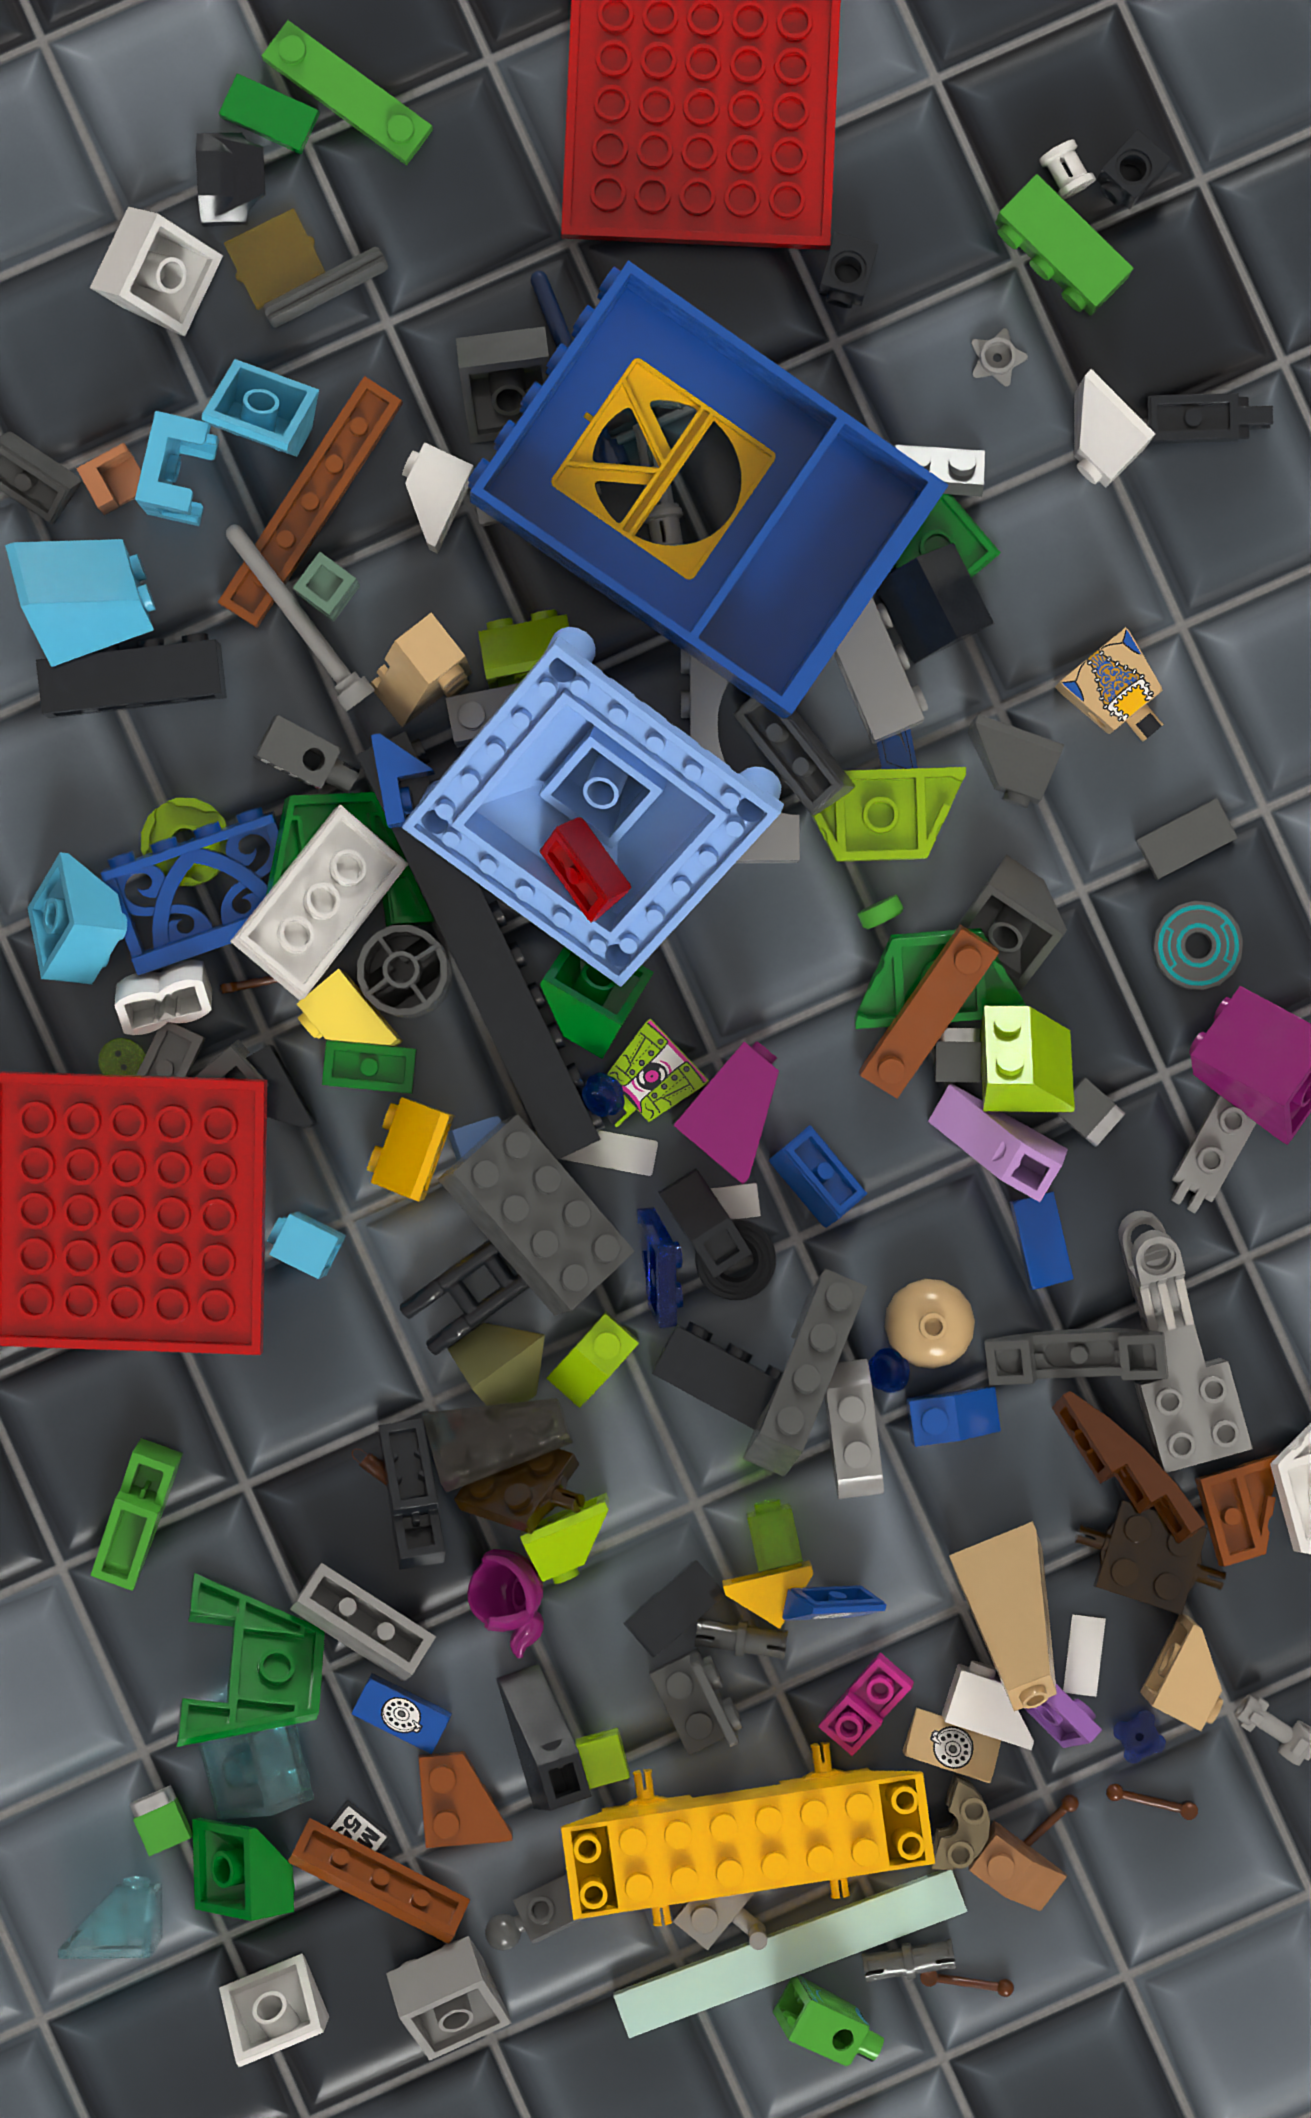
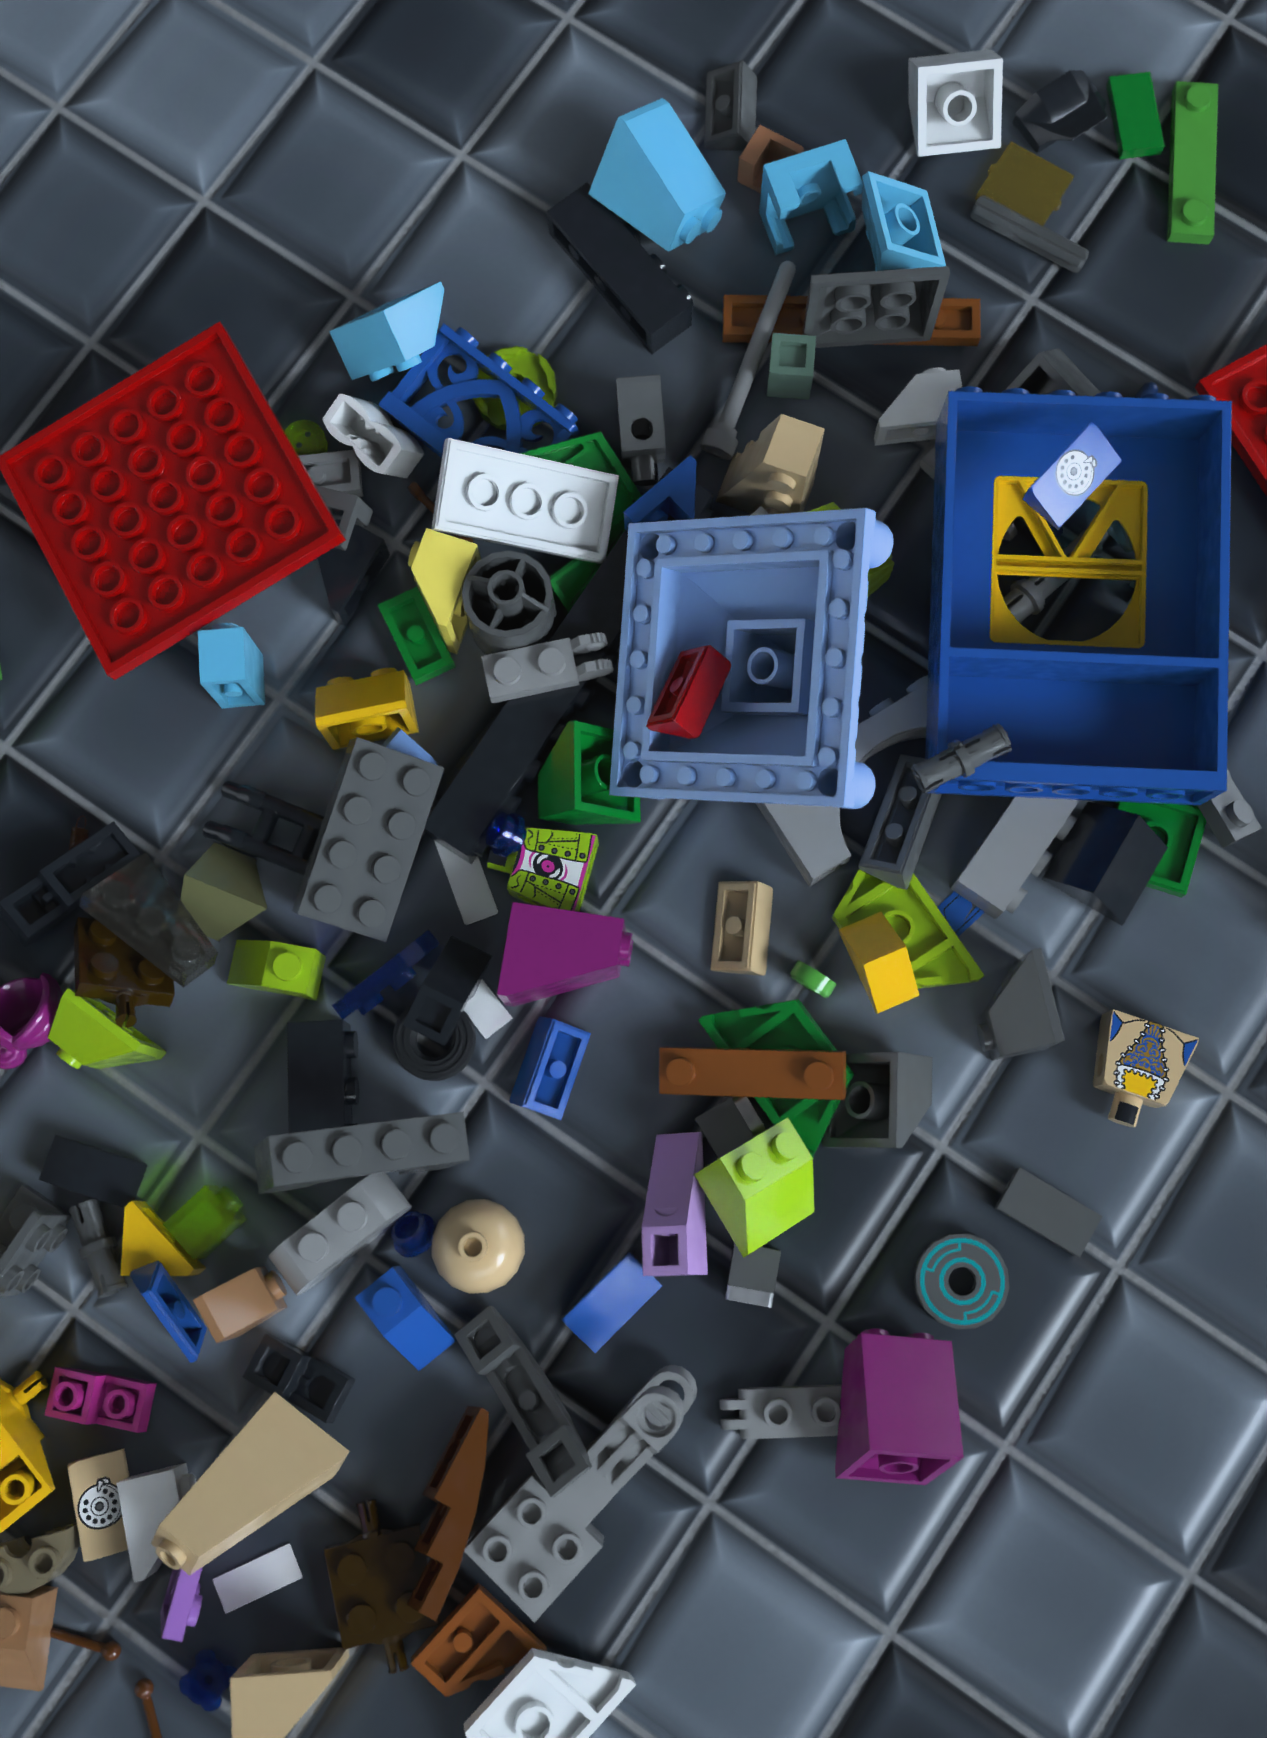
camera: 65 degrees right, 10 degrees down
(329, 471) = (874, 306): none -> dark grey slope
(475, 978) = (543, 667): none -> light grey hinge
(611, 437) = (1073, 476): none -> slope
(791, 685) = (961, 758): none -> dark grey pin
(798, 942) = (742, 927): none -> tan slope
(862, 1540) = (241, 1303): none -> medium nougat slope
(901, 847) = (880, 961): none -> yellow slope
(947, 1532) = (299, 1378): none -> black slope

